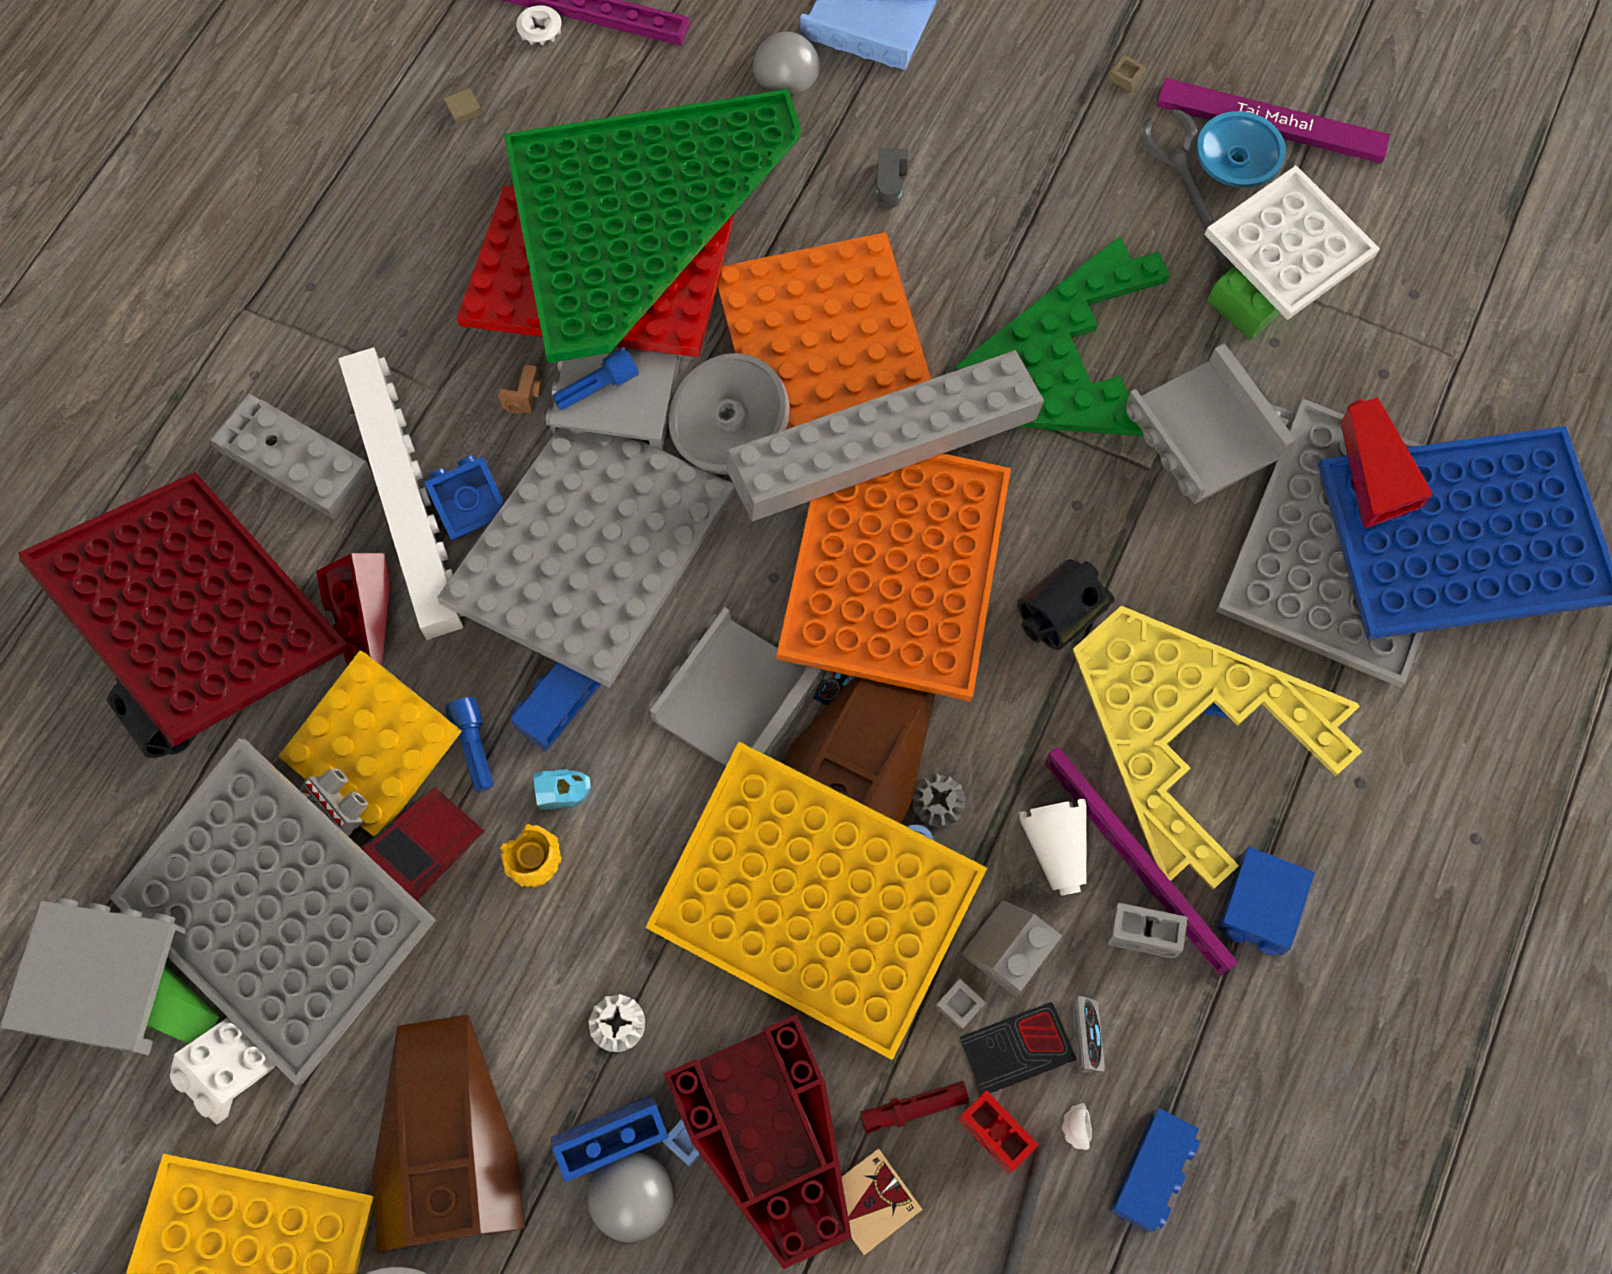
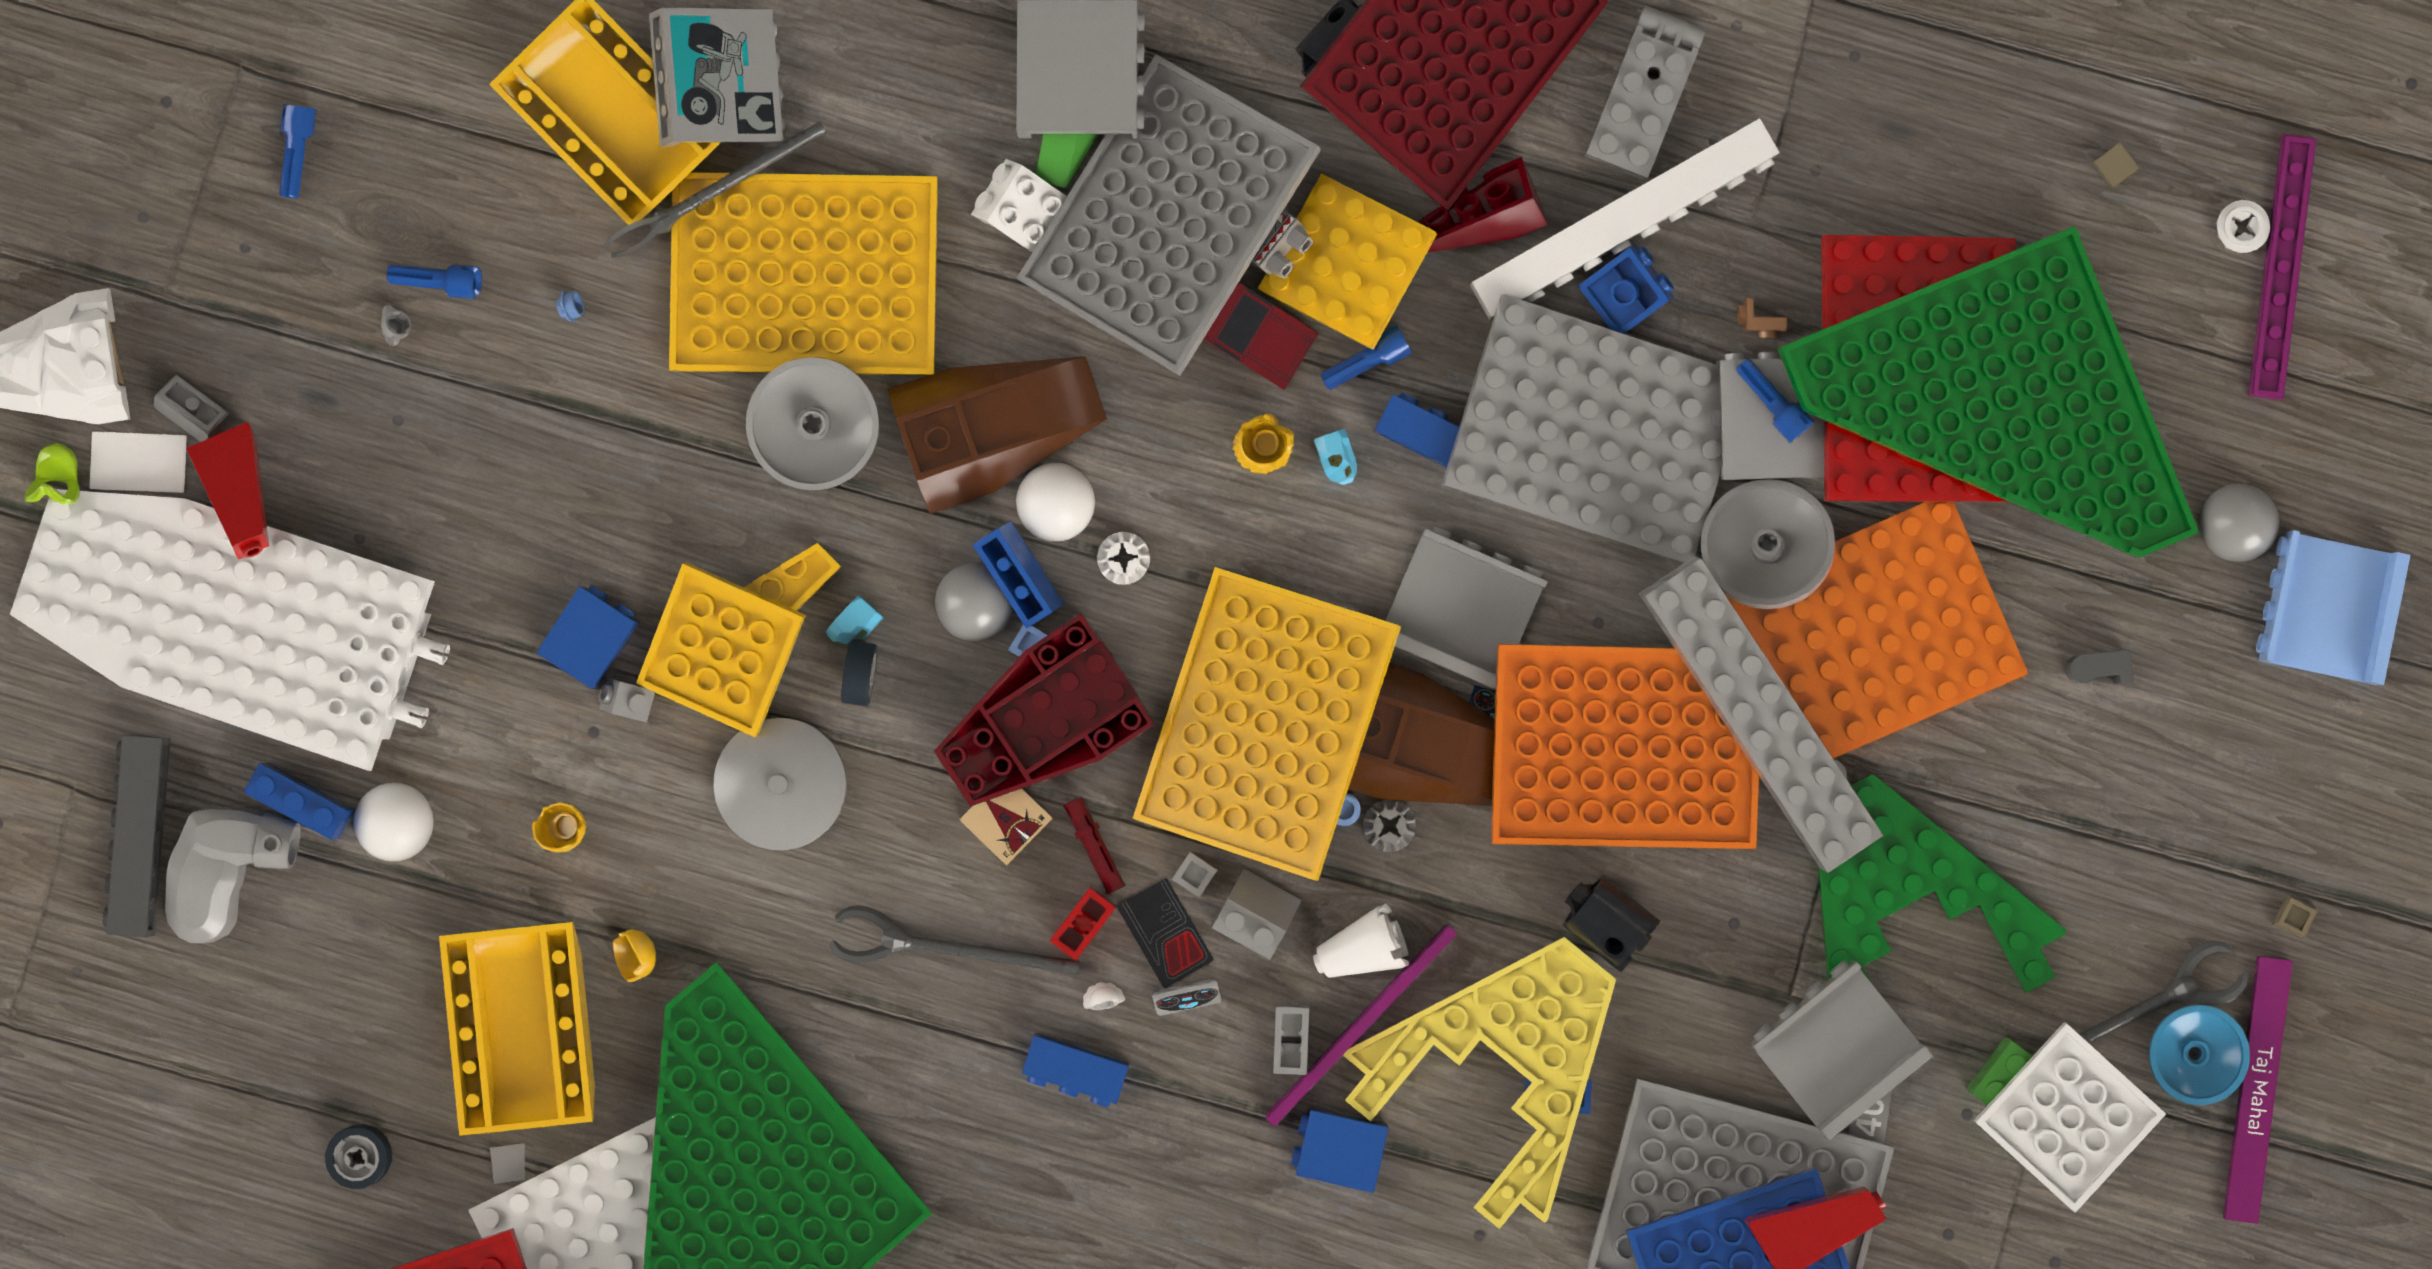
camera: 80 degrees right, 20 degrees up
(542, 1087) = (1055, 502): none -> white piece

